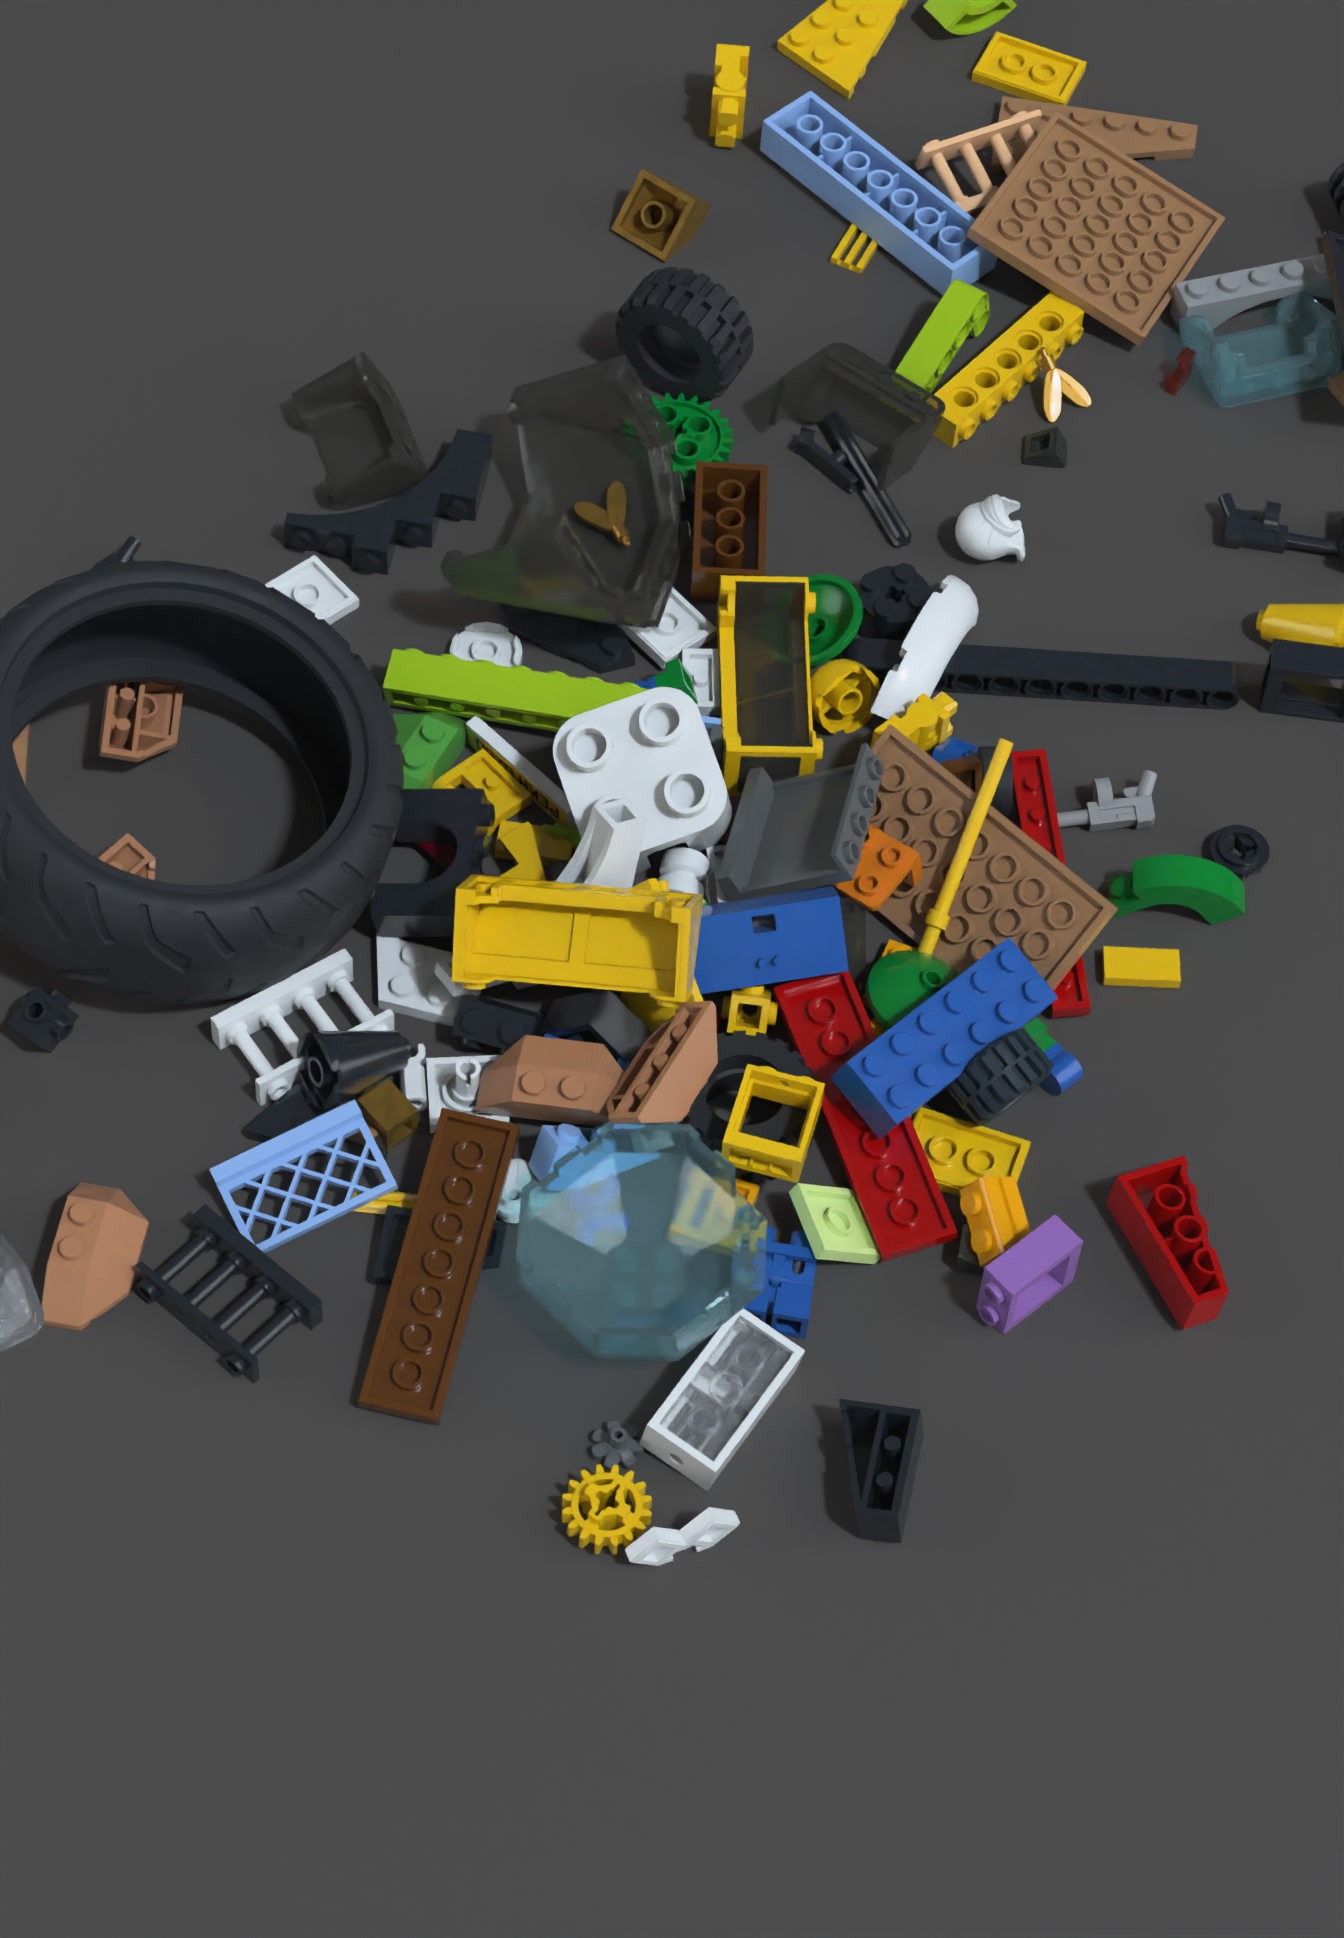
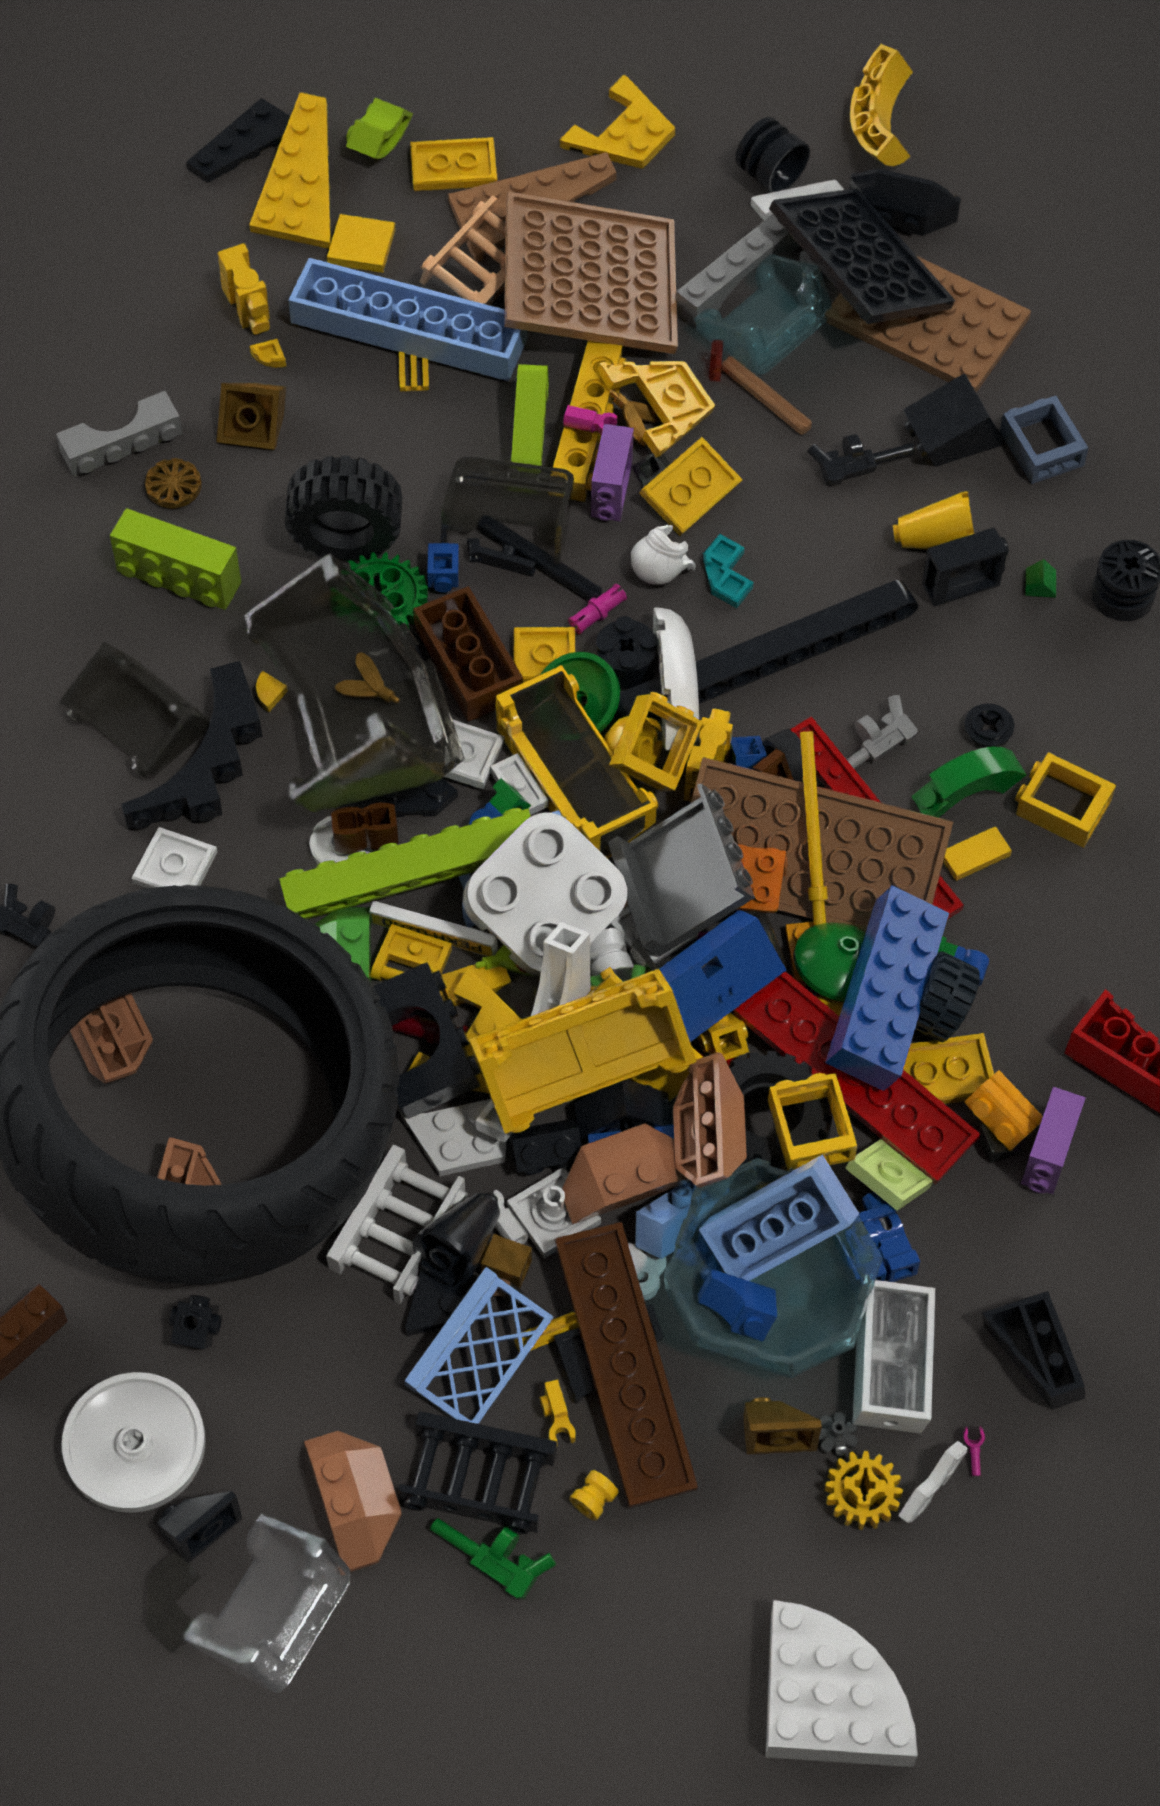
camera: 25 degrees left, 5 degrees up
(195, 1381) = (495, 1560): none -> green piece
(329, 1373) = (592, 1496): none -> yellow wheel
(346, 1272) = (554, 1406): none -> yellow plate
(440, 1681) = (832, 1694): none -> white brick
(479, 180) = (89, 448): none -> light grey arch
(491, 313) = (175, 559): none -> lime brick
(508, 480) = (269, 691): none -> yellow tile
(510, 641) = (363, 828): none -> reddish brown brick
(541, 247) = (173, 483): none -> pearl gold wheel
(553, 1405) = (778, 1428): none -> pearl gold slope
(590, 1261) = (742, 1303): none -> blue arch
(673, 1195) = (779, 1220): none -> light blue brick
(718, 169) = (268, 353): none -> yellow tile
(751, 1530) = (974, 1446): none -> dark pink hand
(758, 447) = (443, 572): none -> blue brick
(810, 557) = (539, 647): none -> yellow tile
(827, 715) = (689, 727): none -> yellow window
(882, 106) = (361, 243): none -> yellow tile
(894, 552) = (597, 609): none -> dark pink pin
(991, 426) = (612, 472): none -> medium lavender window
(998, 365) = (587, 419): none -> dark pink bar
(1047, 584) = (722, 580): none -> teal tile
(1070, 479) = (690, 486): none -> yellow tile
(1109, 381) = (671, 393): none -> yellow wing
(1213, 429) = (766, 395): none -> medium nougat axle
(1234, 123) = (633, 136): none -> yellow wing
(1288, 989) = (1054, 819): none -> yellow window

